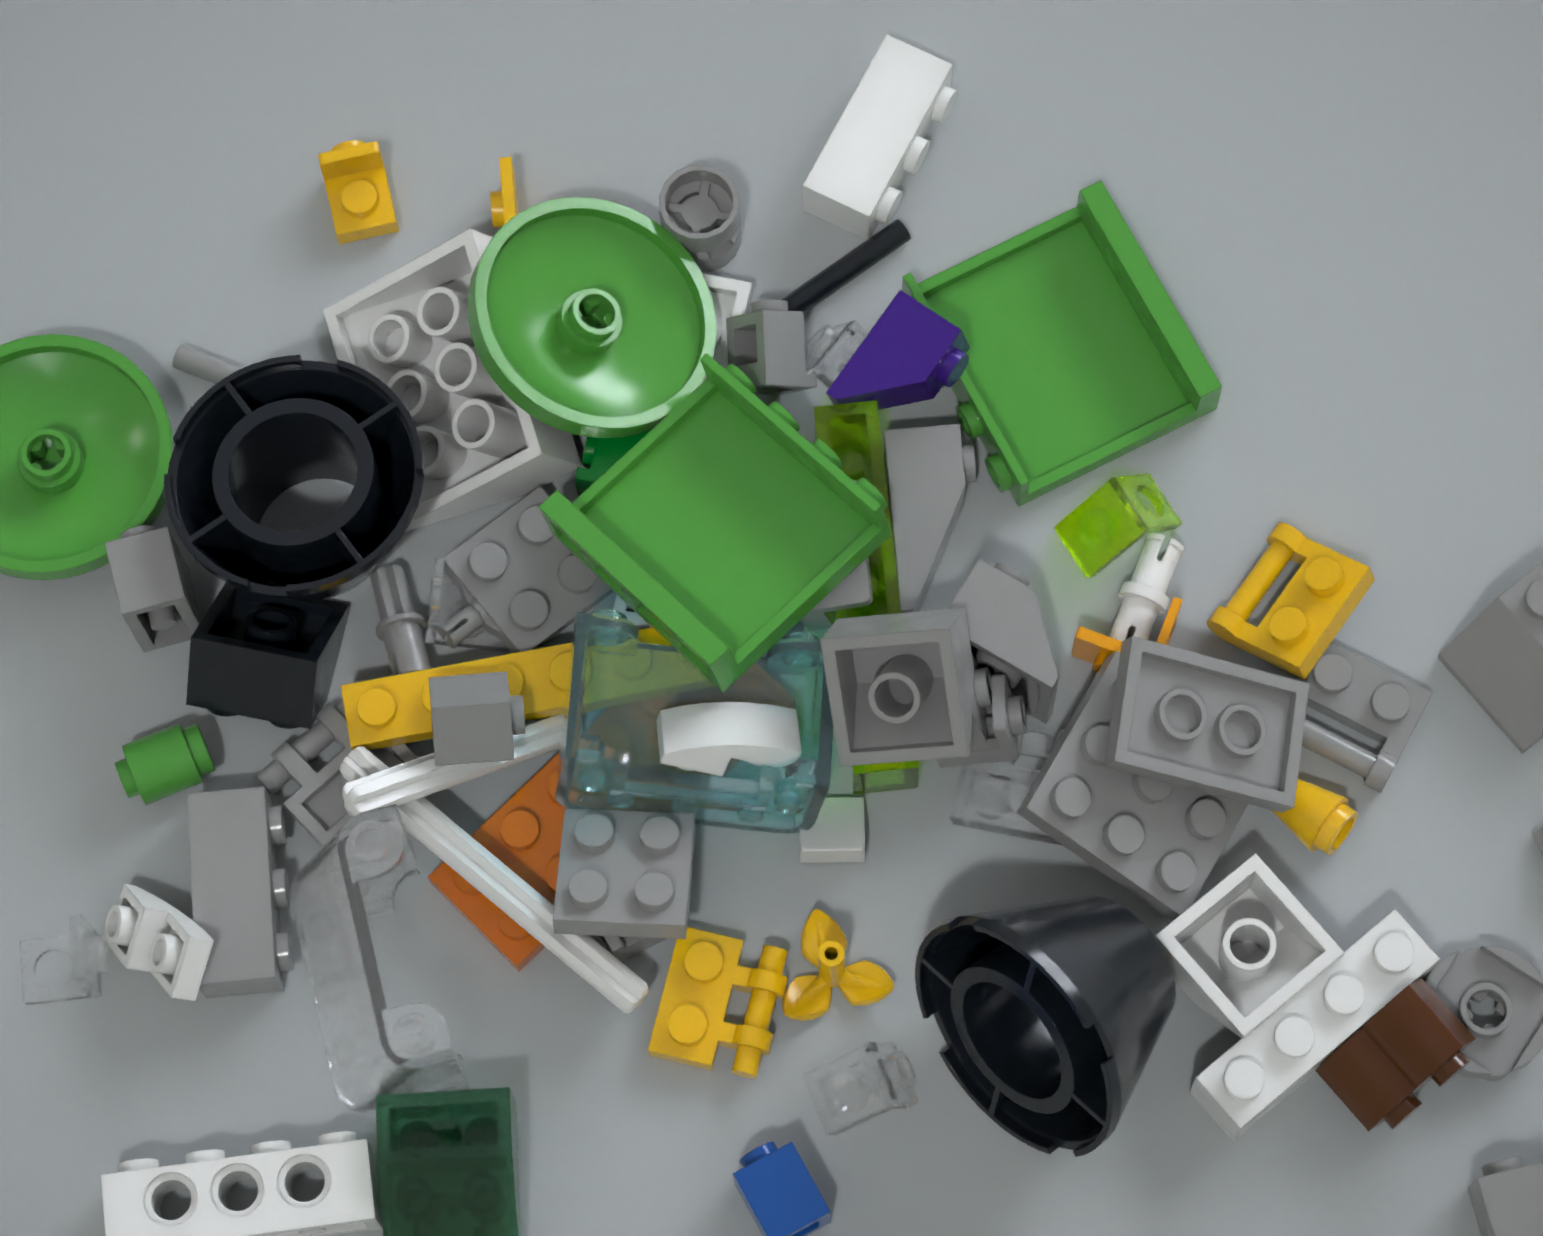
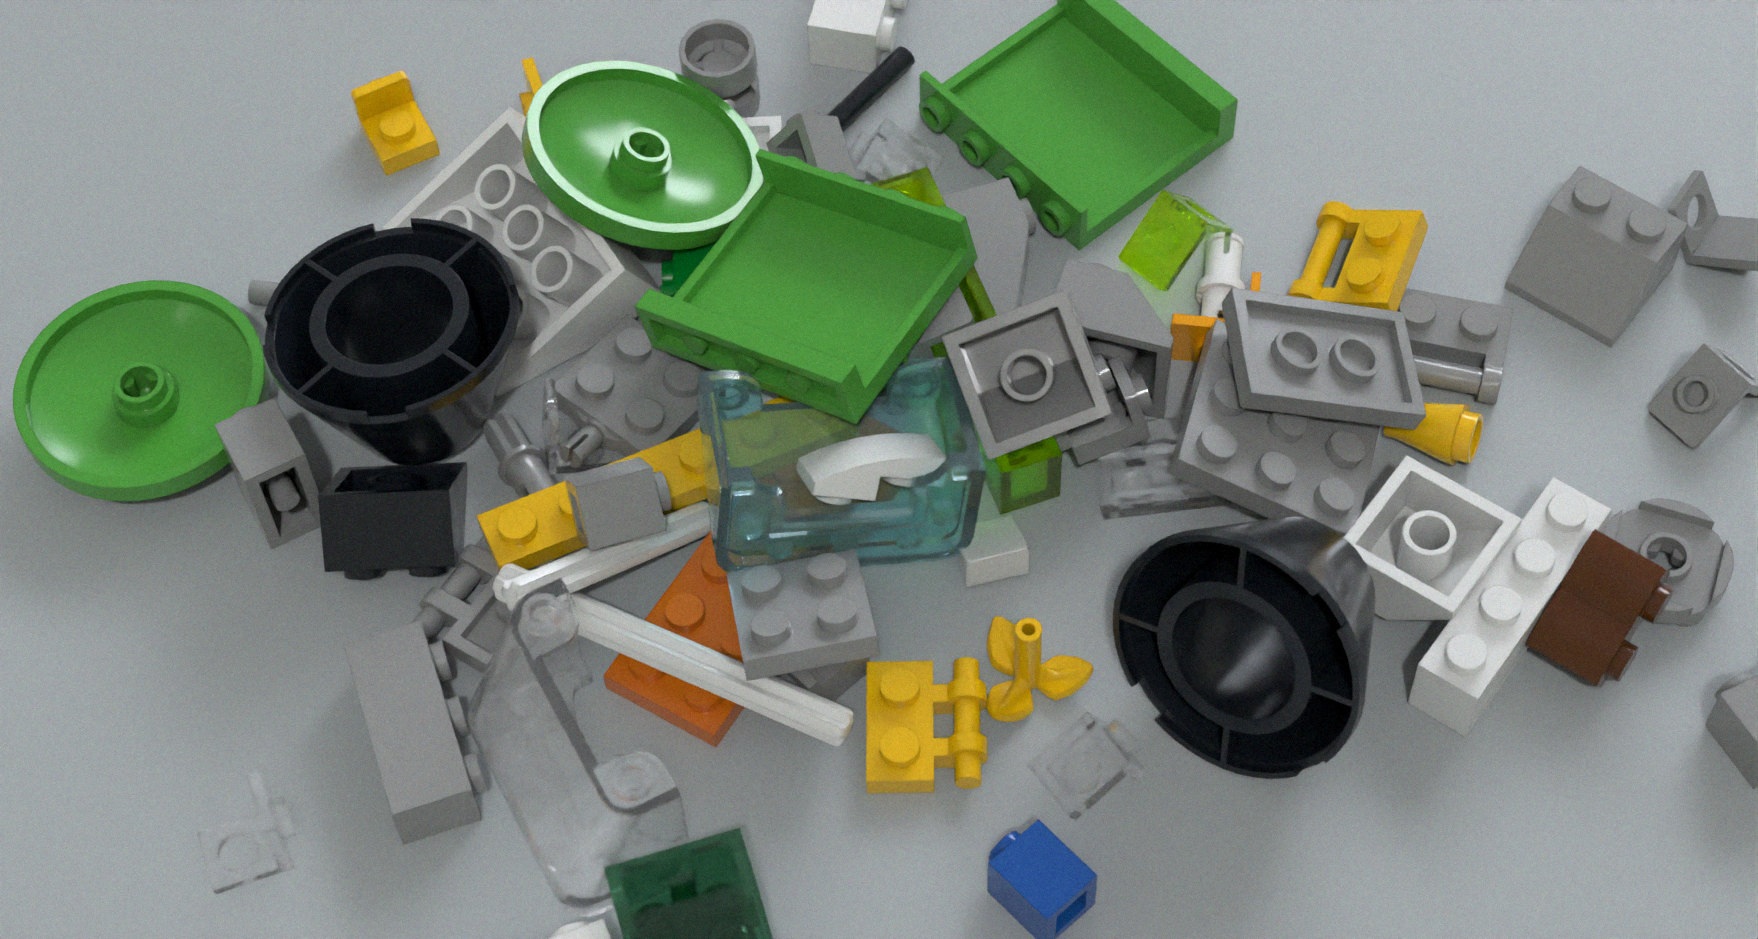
camera: 15 degrees left, 15 degrees down
(158, 940) = (343, 788): white slope -> none
(164, 763) = (314, 631): bright green brick -> none
(903, 358) = (943, 126): dark purple slope -> none

